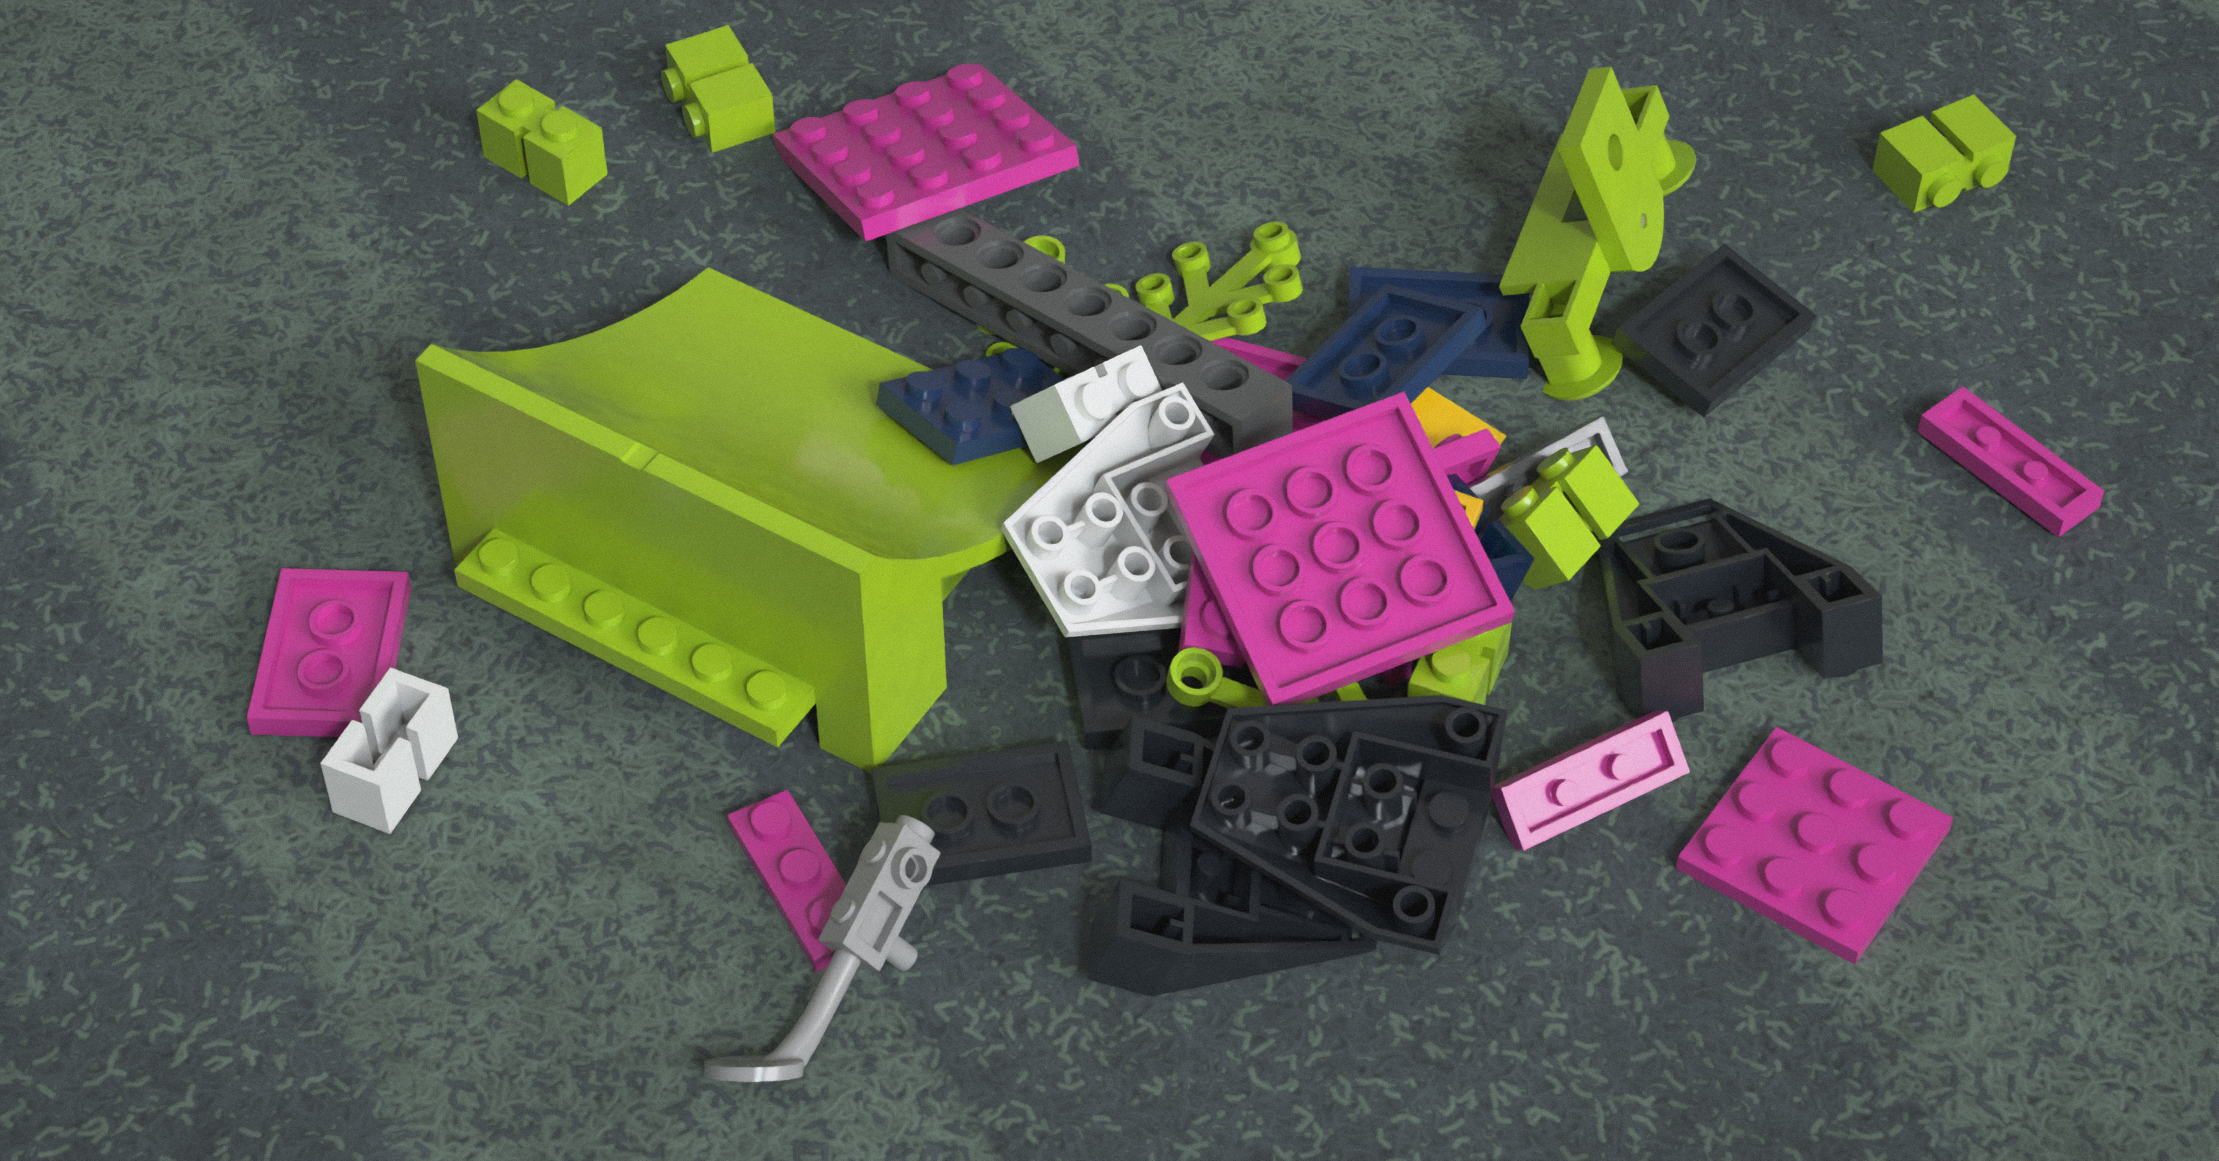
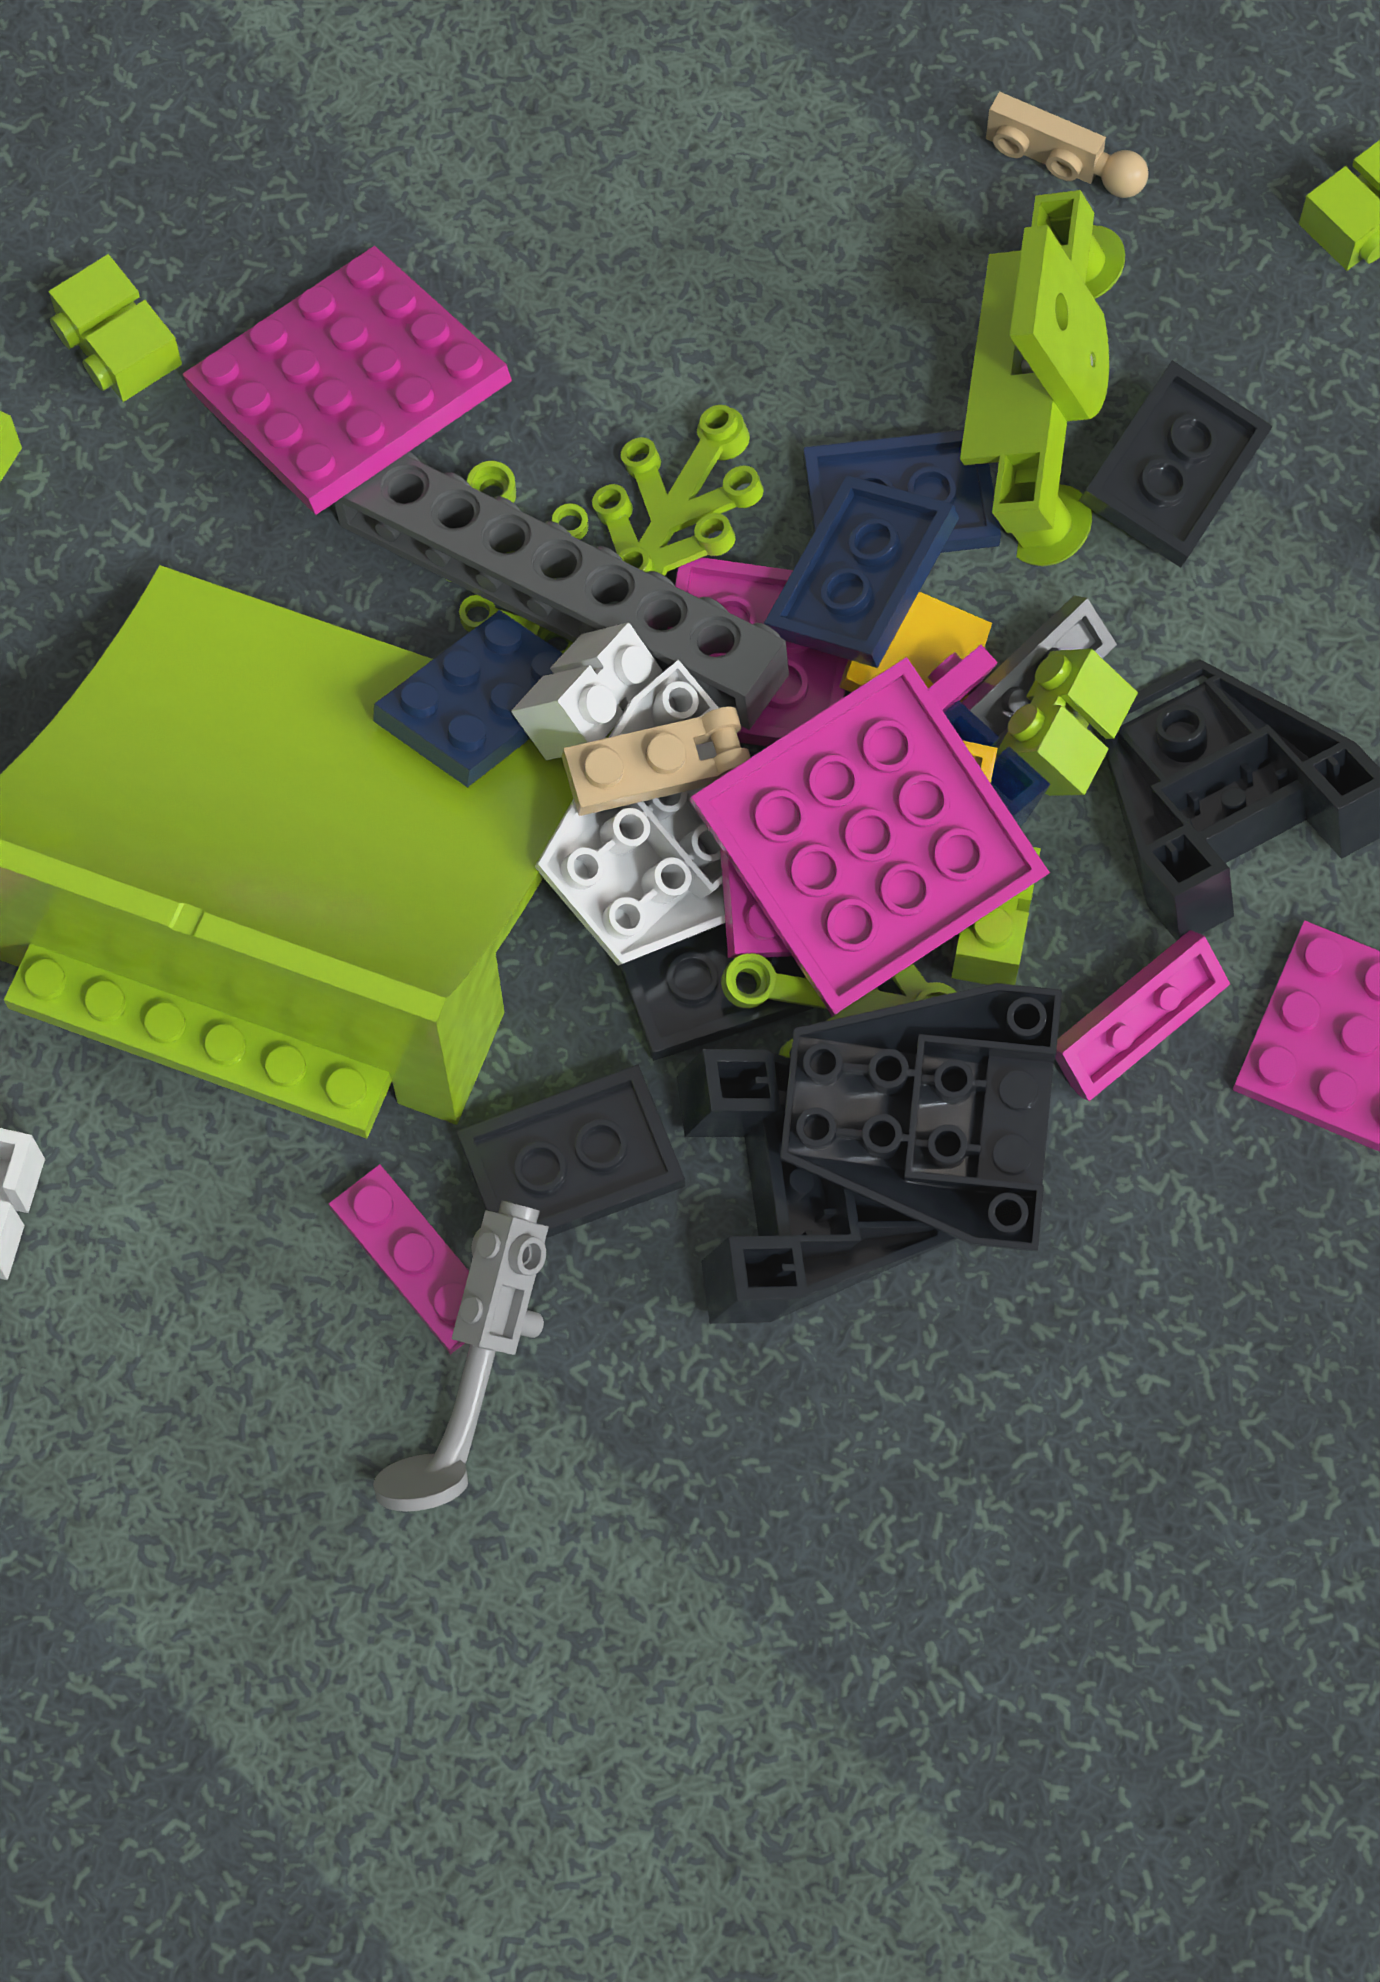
camera: 10 degrees left, 20 degrees up
(1132, 453) = (652, 761): none -> tan plate
(1645, 64) = (1063, 147): none -> tan plate

